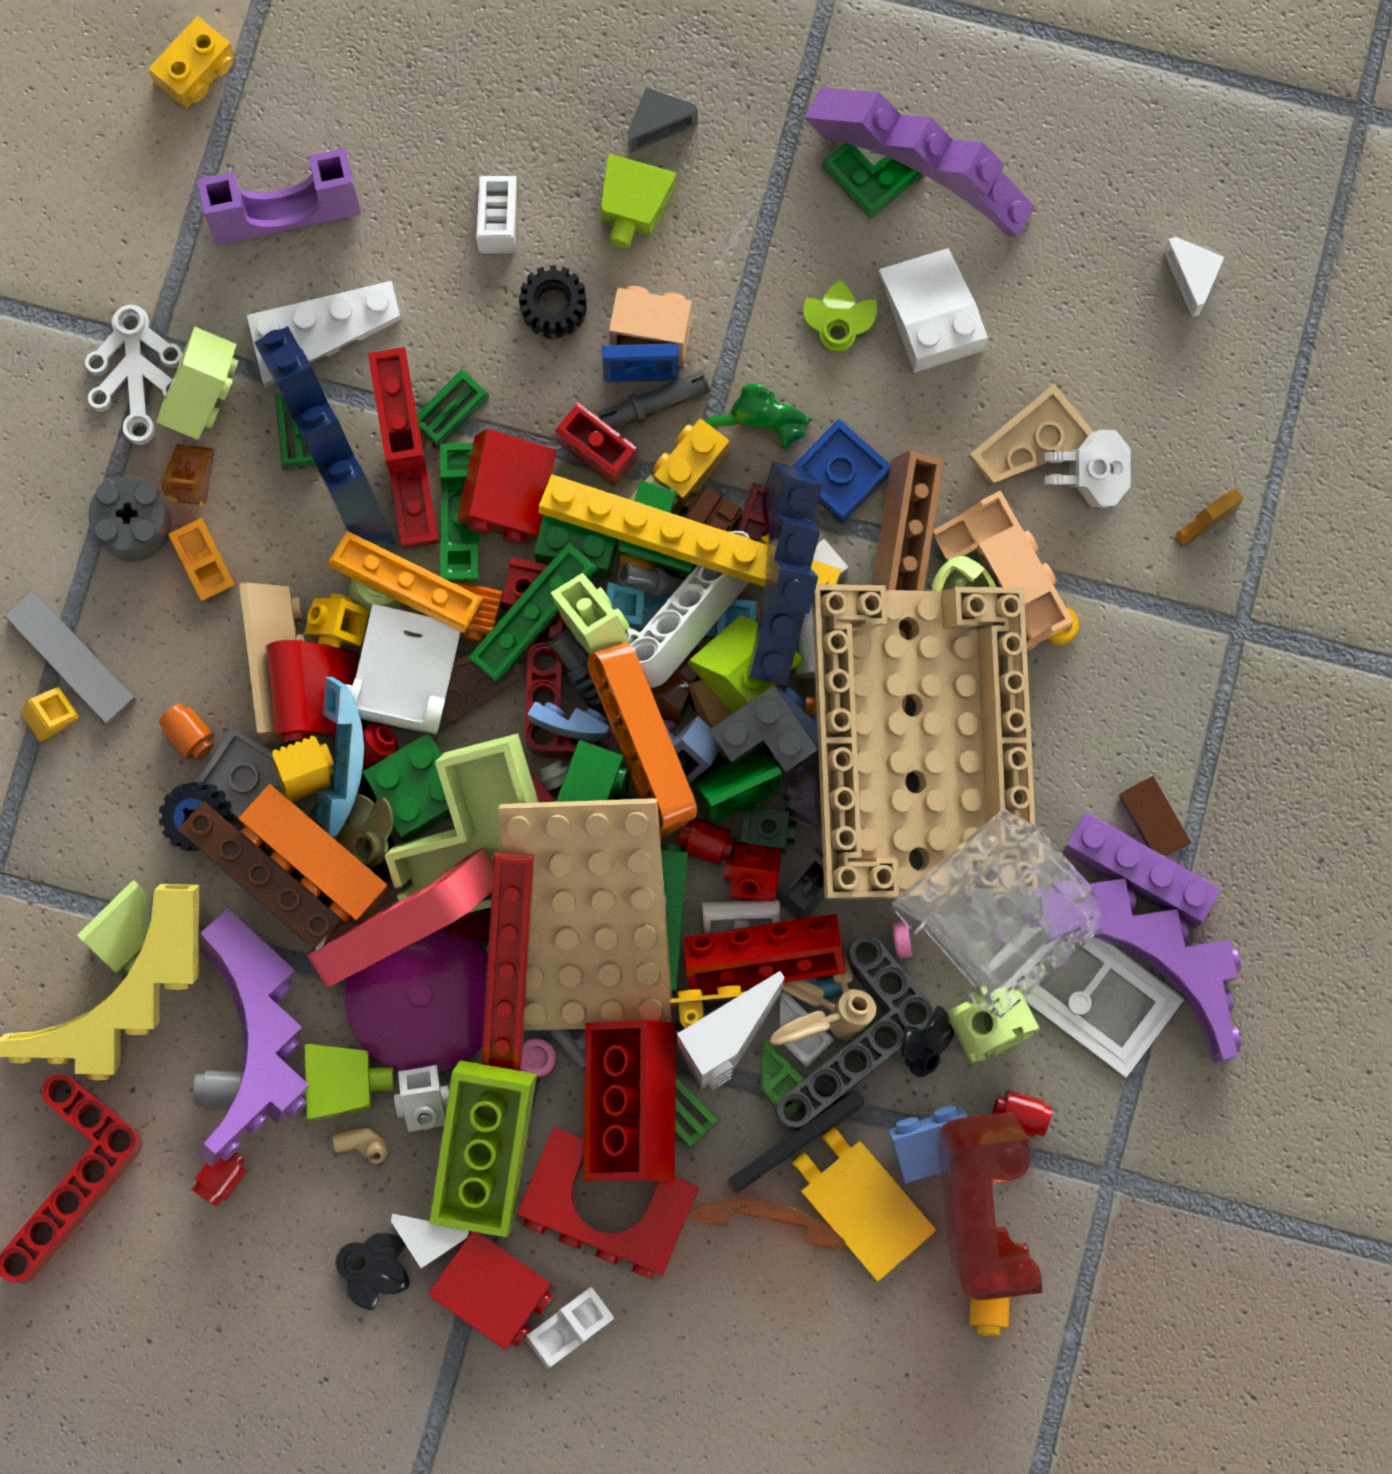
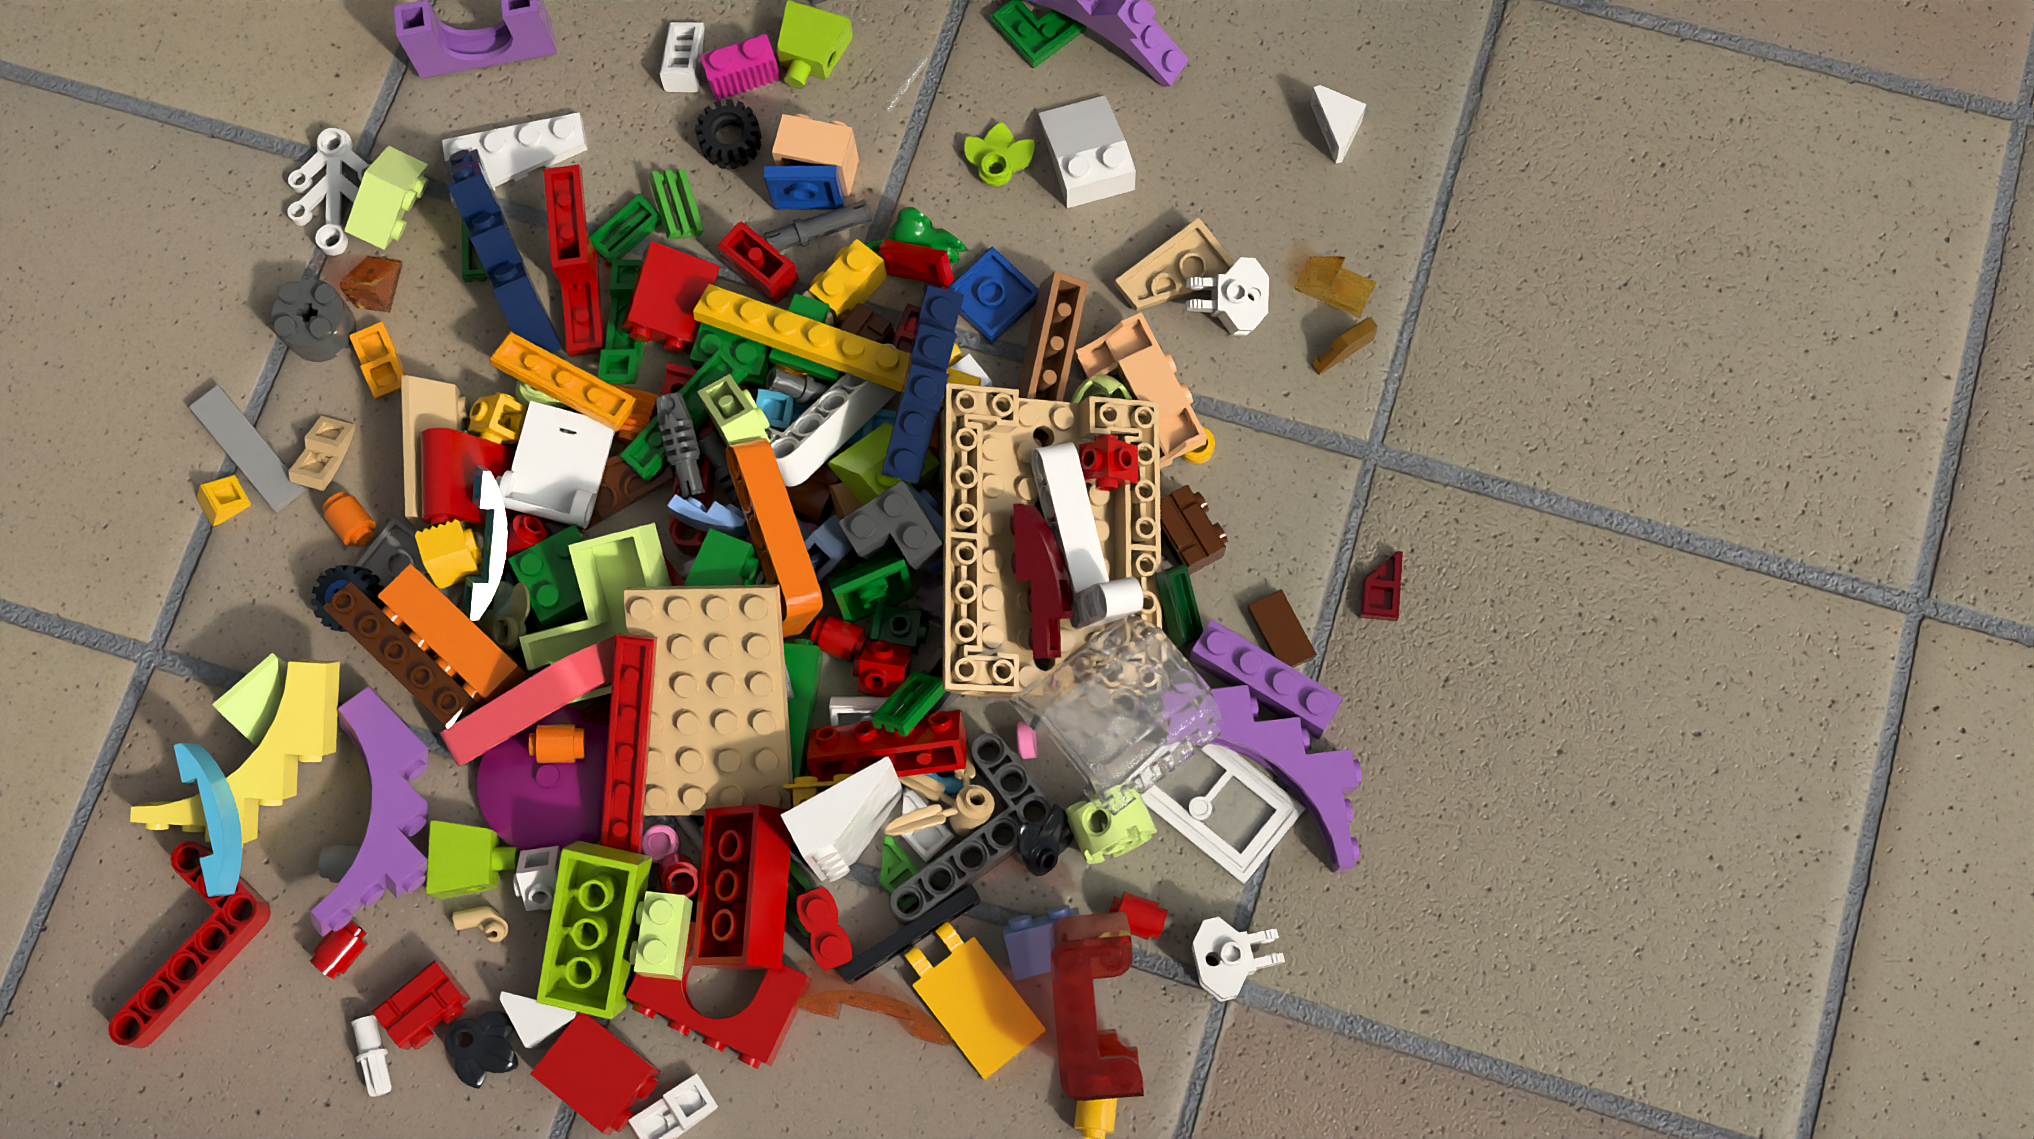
camera: 10 degrees right, 5 degrees down
(71, 1001) = (222, 818): none -> medium azure slope
(151, 661) = (324, 452): none -> tan slope
(262, 1282) = (372, 1056): none -> white axle
(310, 1231) = (422, 1006): none -> red brick
(429, 961) = (558, 743): none -> orange brick
(508, 379) = (670, 179): none -> bright green tile
(534, 645) = (680, 442): none -> dark grey hinge
(553, 1153) = (662, 935): none -> yellowish green brick
(560, 1091) = (684, 884): none -> red brick
(561, 227) = (740, 66): none -> dark pink brick
(713, 1147) = (826, 937): none -> red brick
(763, 441) = (916, 262): none -> red tile
(792, 909) = (914, 706): none -> green tile
(916, 764) = (1041, 563): none -> dark red slope
(948, 740) = (1073, 526): none -> white beam
(977, 656) = (1109, 462): none -> red brick
(1052, 796) = (1179, 604): none -> dark green tile
(1057, 718) = (1189, 530): none -> reddish brown brick
(1119, 1152) = (1233, 956): none -> white hinge
(1196, 451) = (1332, 284): none -> clear yellow slope
(1255, 773) = (1382, 591): none -> dark red tile

